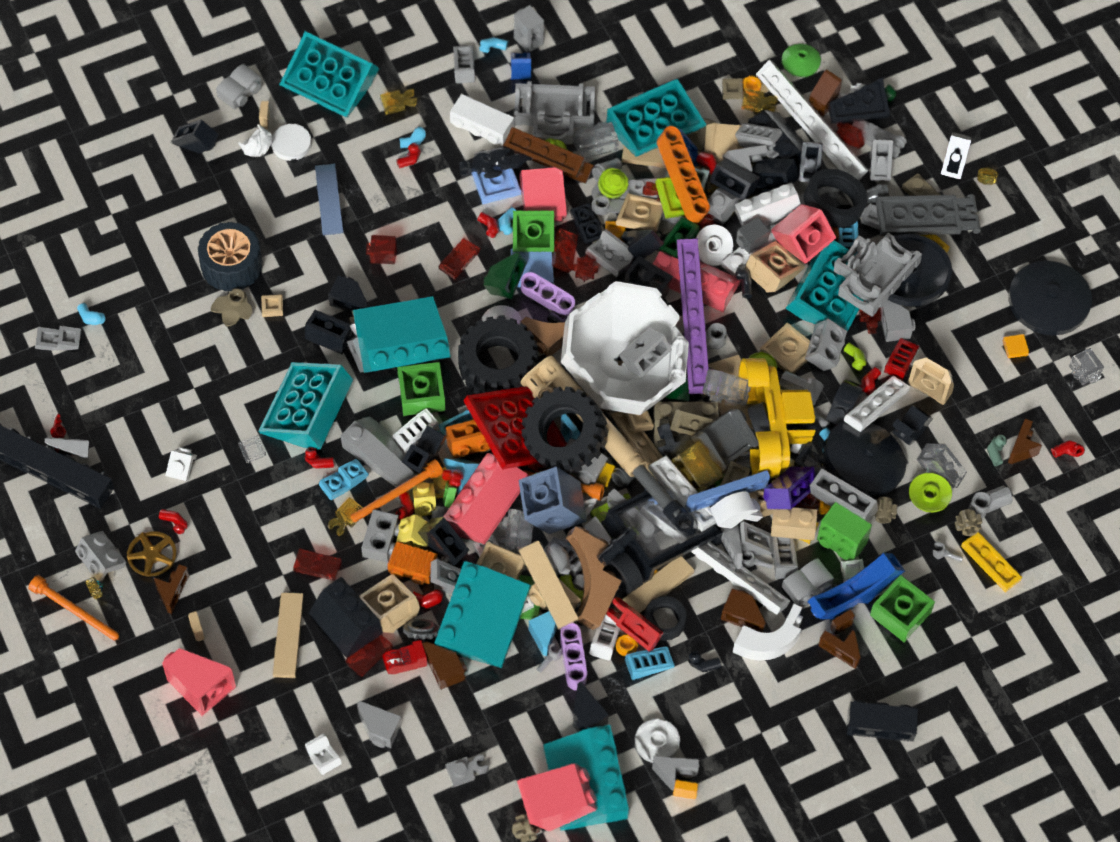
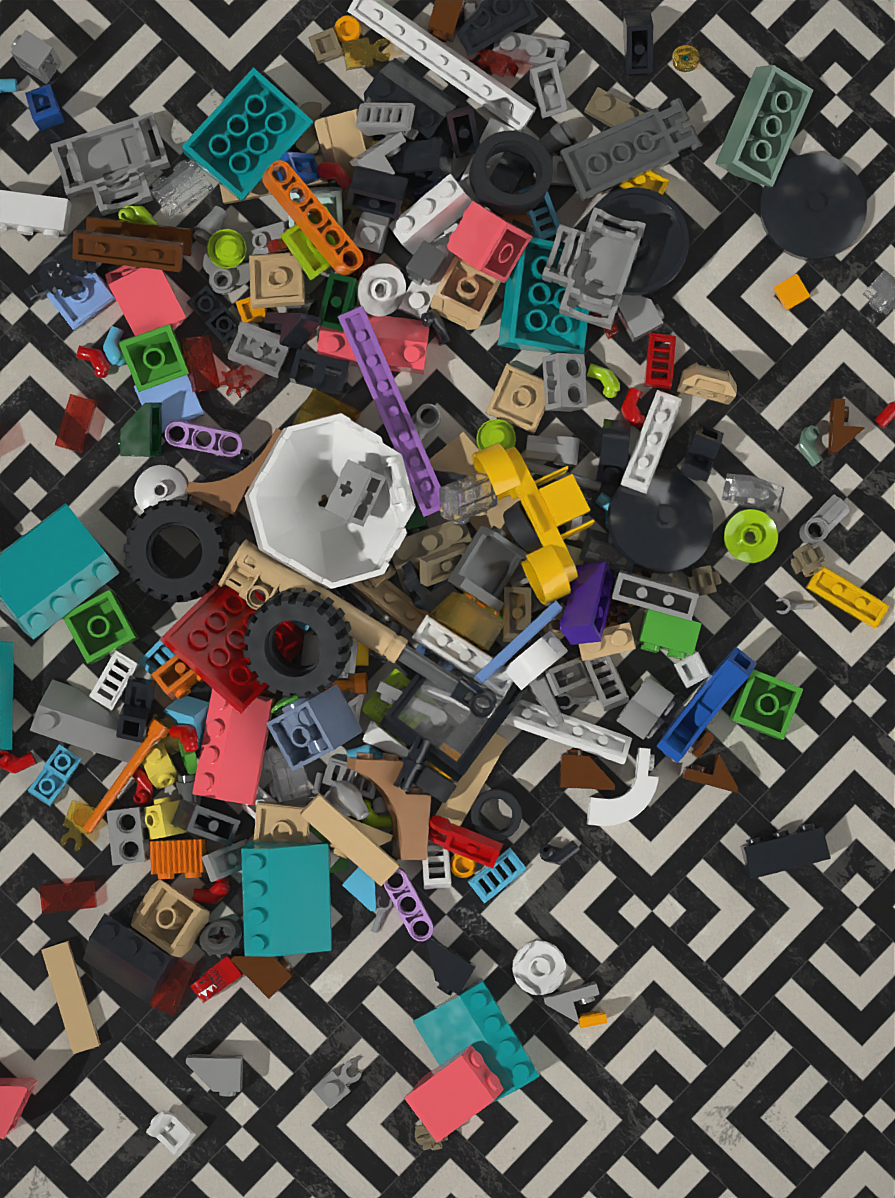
camera: 20 degrees left, 25 degrees up
(1031, 232) = (764, 125): none -> sand green slope

